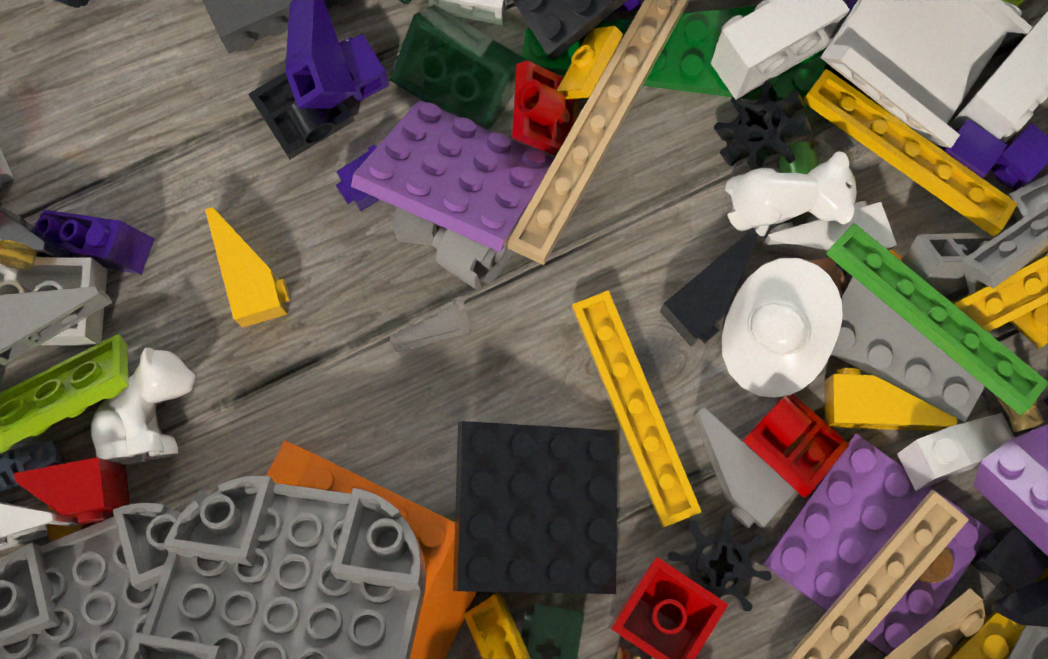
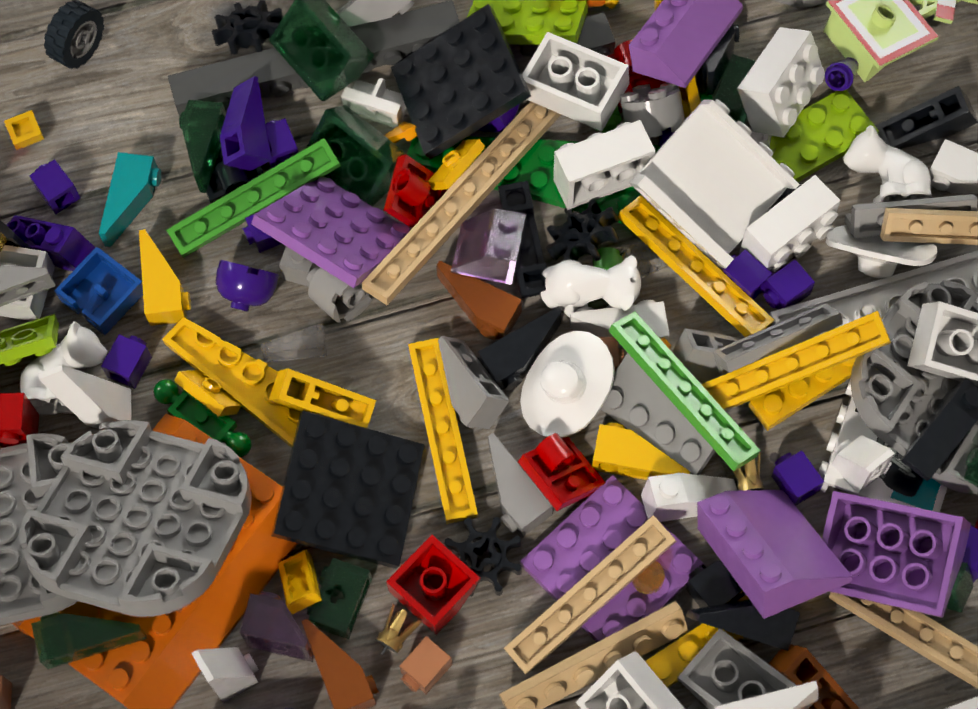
camera: 10 degrees right, 10 degrees down
(33, 96) = (24, 130): none -> yellow plate
(86, 165) = (54, 186): none -> dark purple brick
(171, 293) = (100, 290): none -> blue piece
(183, 156) = (128, 194): none -> teal slope
(187, 445) = (88, 396): none -> white slope
(222, 380) = (127, 360): none -> dark purple brick
(261, 64) = (201, 131): none -> clear green slope
(332, 440) = (197, 414): none -> green plate
(333, 408) = (207, 392): none -> yellow plate
(341, 143) = (252, 197): none -> bright green plate
(353, 259) = (245, 285): none -> dark purple cylinder
(385, 384) = (239, 374): none -> yellow wing
(480, 398) = (321, 398): none -> yellow slope
(511, 27) = (404, 130): none -> light orange tile
(654, 163) = (489, 245): none -> slope
(654, 237) = (486, 306): none -> dark orange slope
(661, 348) = (470, 386): none -> light grey slope
(687, 146) = (530, 259): none -> black slope

